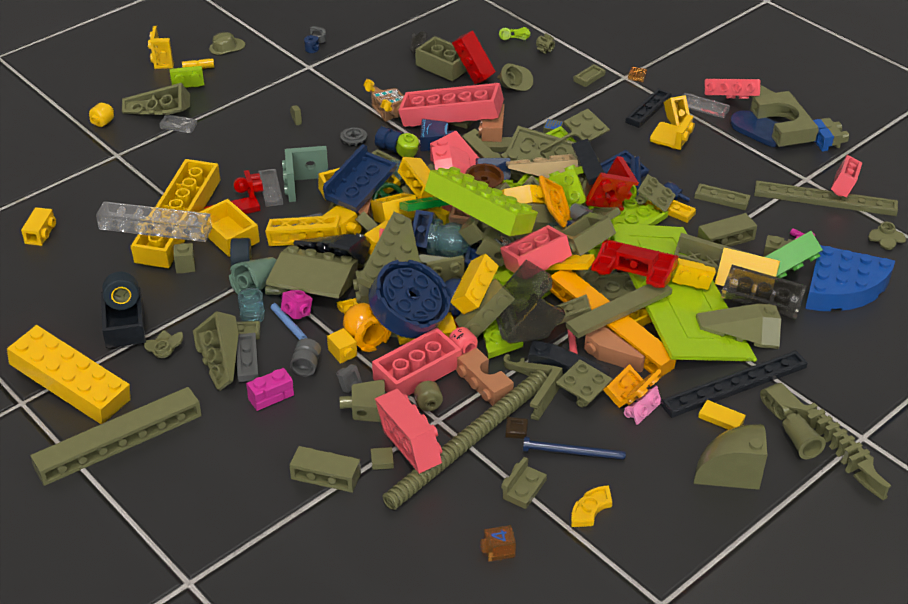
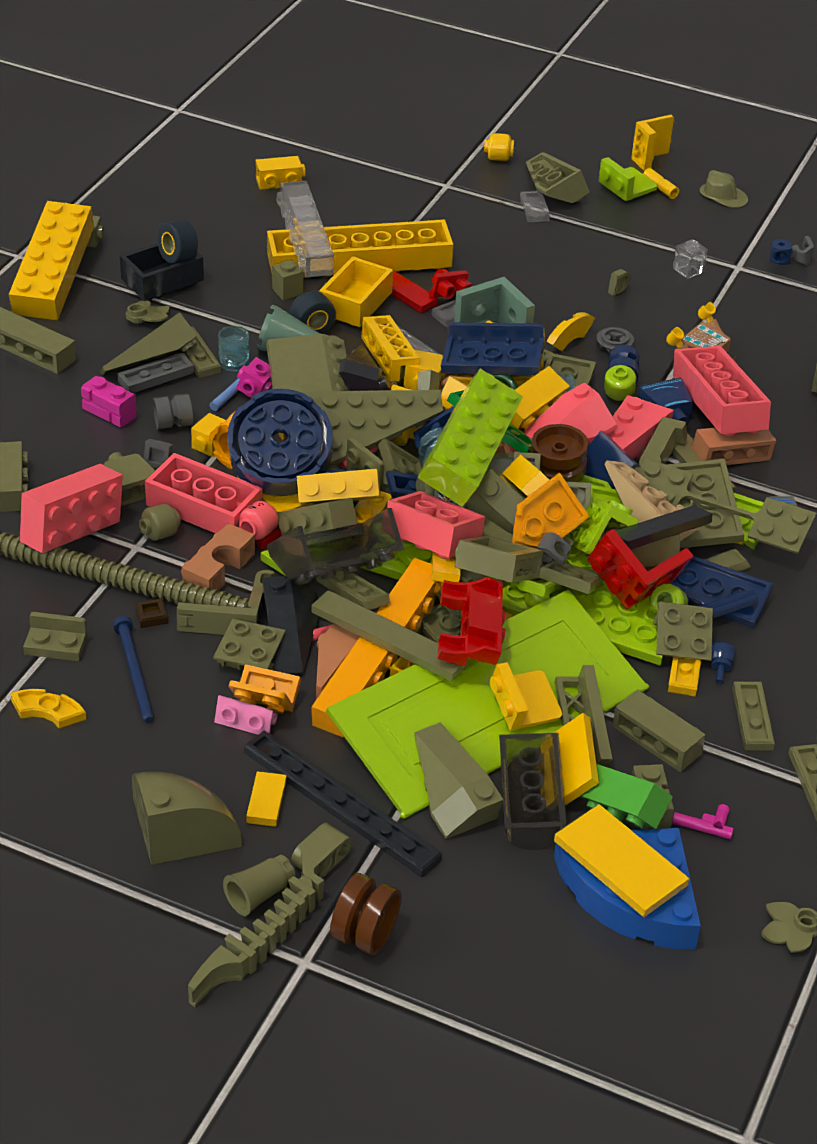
camera: 65 degrees right, 0 degrees up
(295, 78) = (690, 258): none -> clear brick
(338, 148) = (570, 330): none -> yellow tile
(846, 270) = (621, 860): none -> yellow tile
(851, 389) = (365, 913): none -> reddish brown wheel

